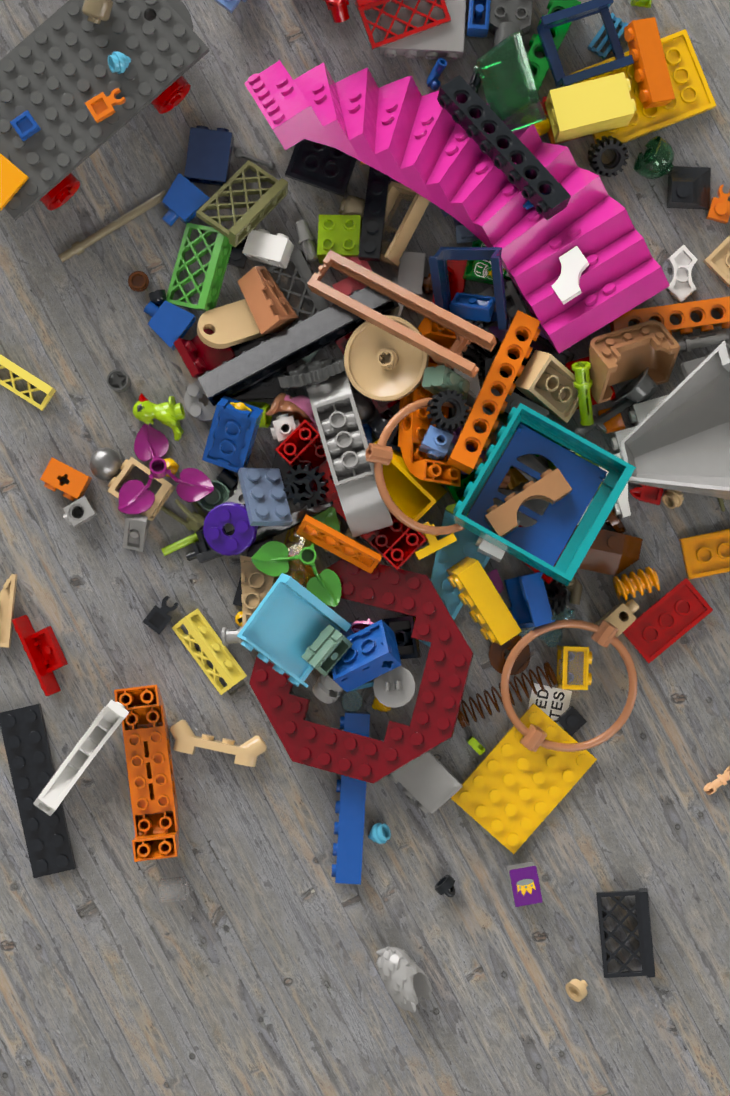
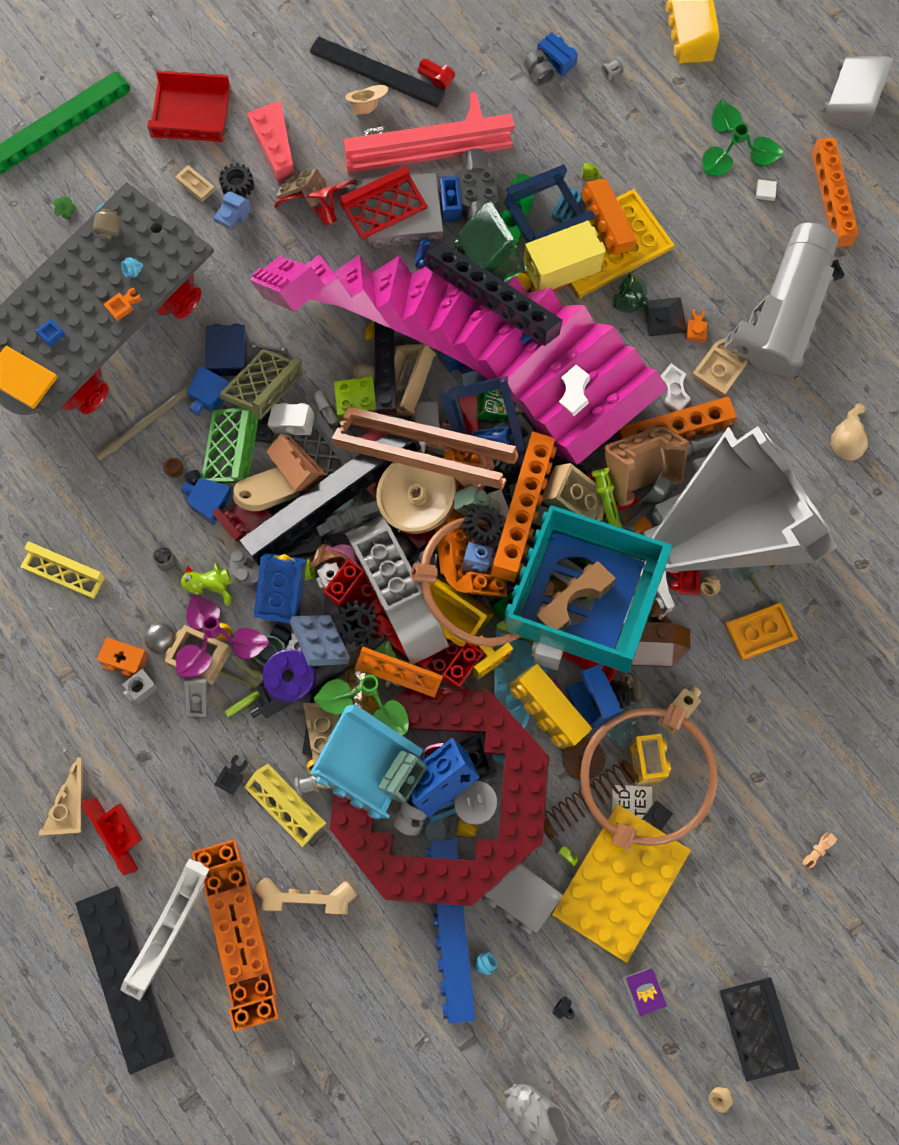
camera: 10 degrees left, 15 degrees down
(321, 166) = (331, 336): black plate -> none
(615, 164) = (597, 292): black tyre -> none
(636, 583) = (692, 668): light orange piece -> none
(667, 620) = (730, 702): red plate -> none

